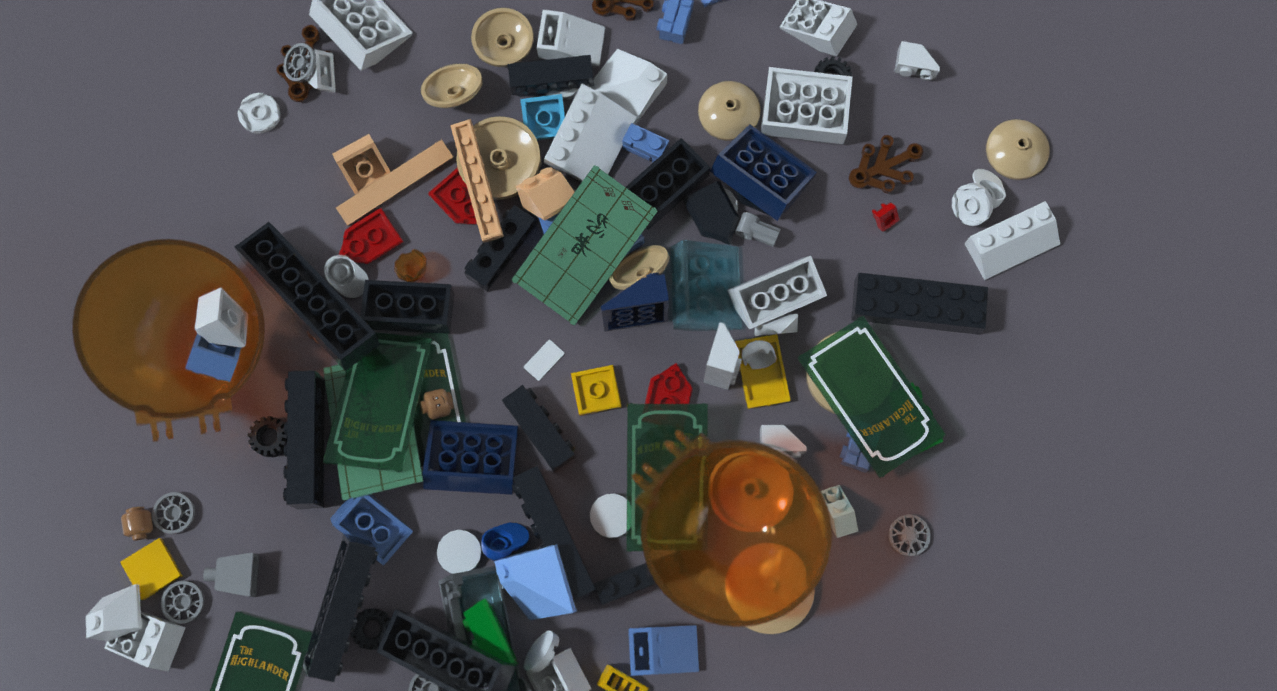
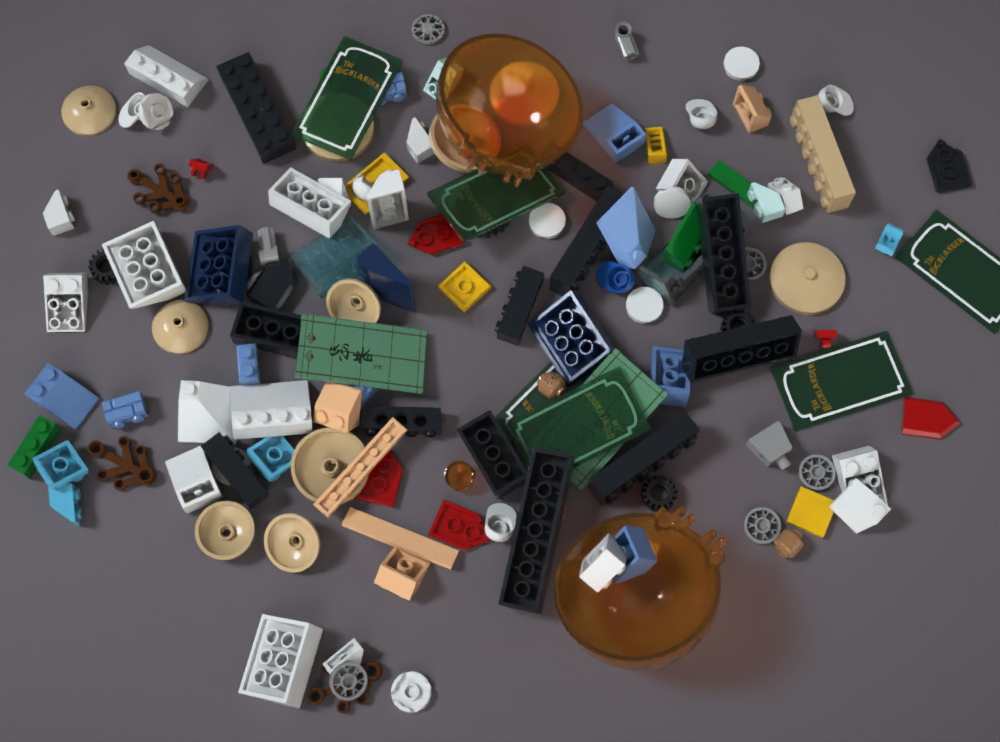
camera: 125 degrees left, 5 degrees down
(544, 360) = (466, 338): white sticker -> none

